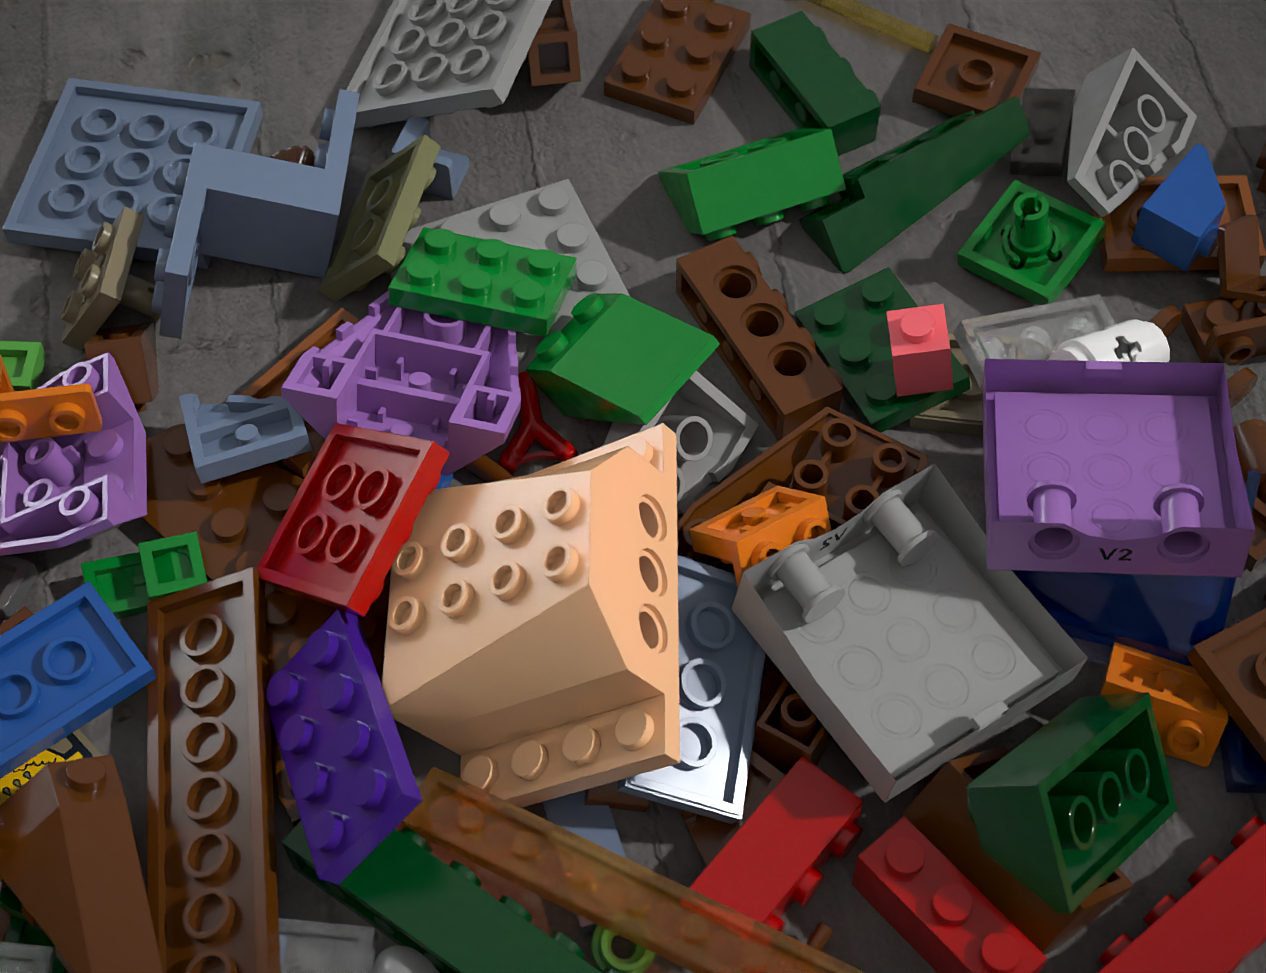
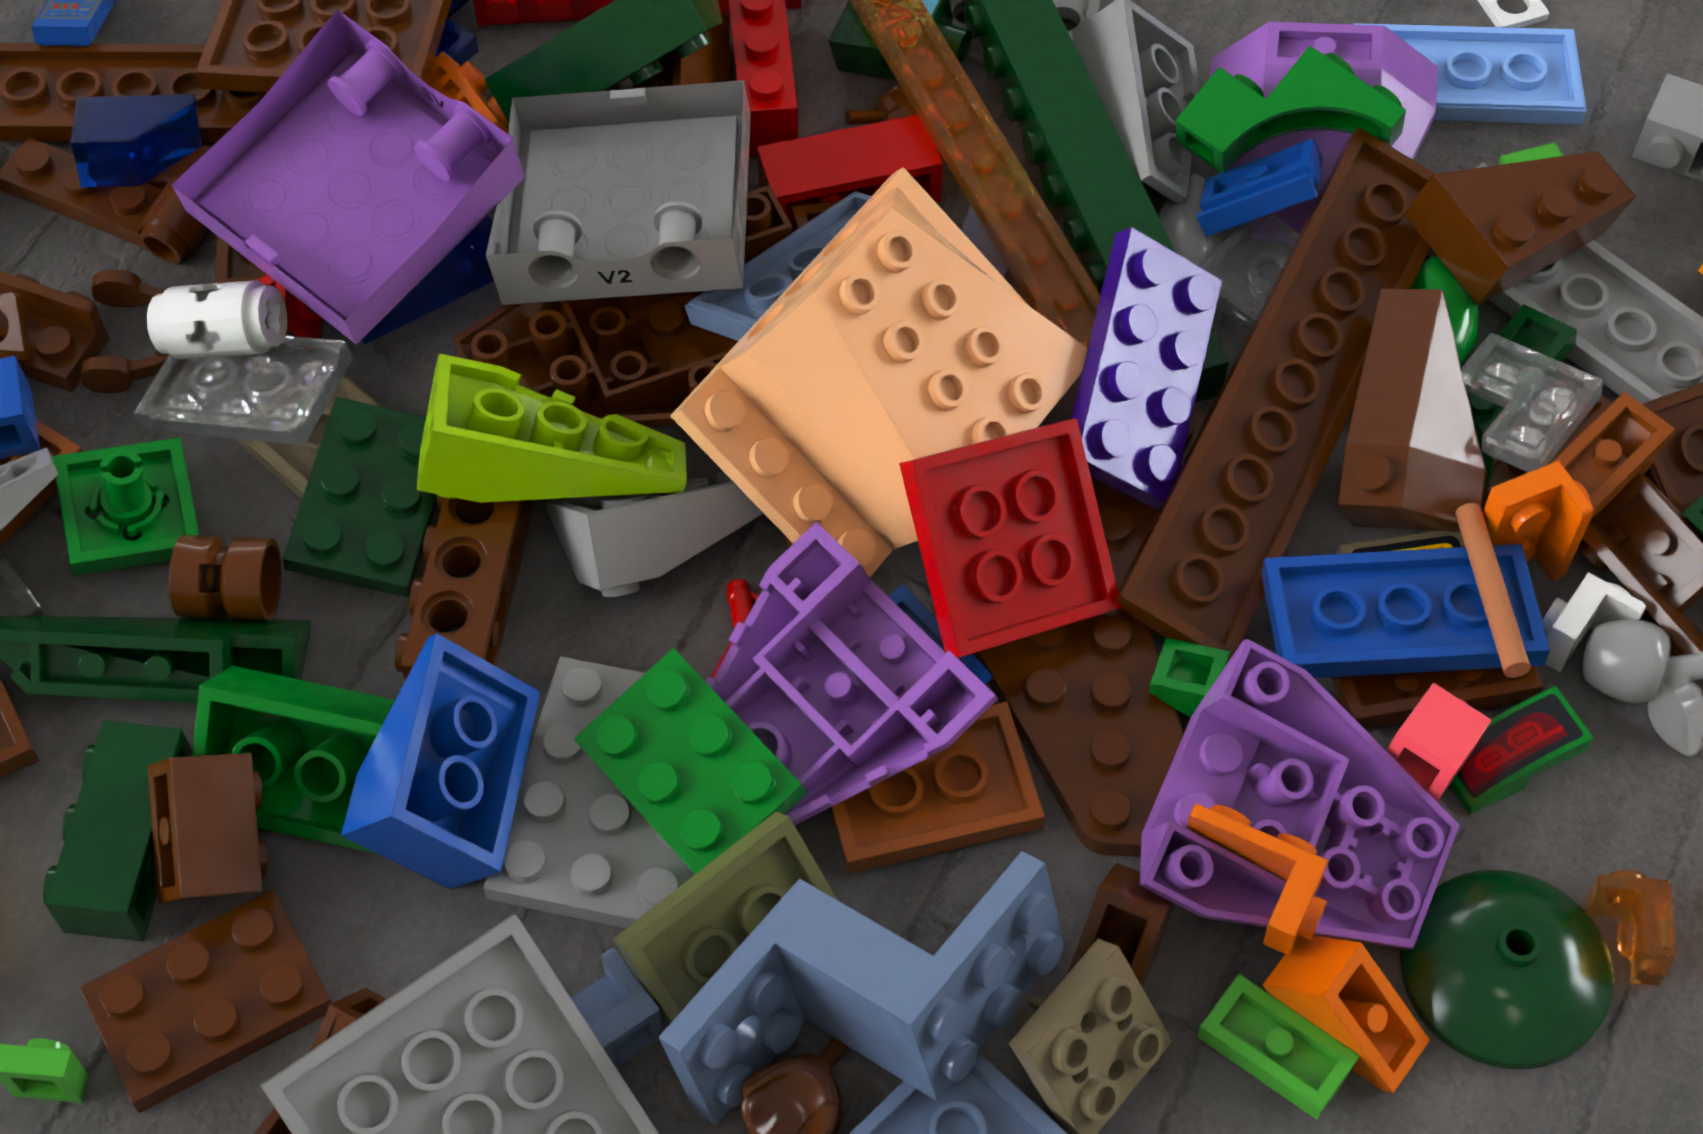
camera: 145 degrees left, 0 degrees up
(241, 433) = (1049, 751): sand blue wing -> none
(618, 359) = (637, 564): green slope -> none
(632, 183) = (445, 768): none -> blue slope
(752, 87) = (206, 827): none -> reddish brown brick
(761, 527) = (659, 333): orange bracket -> none
(784, 394) = (509, 443): none -> lime wedge
(910, 236) = (219, 577): none -> reddish brown wheel
(920, 350) = (370, 403): coral brick -> none

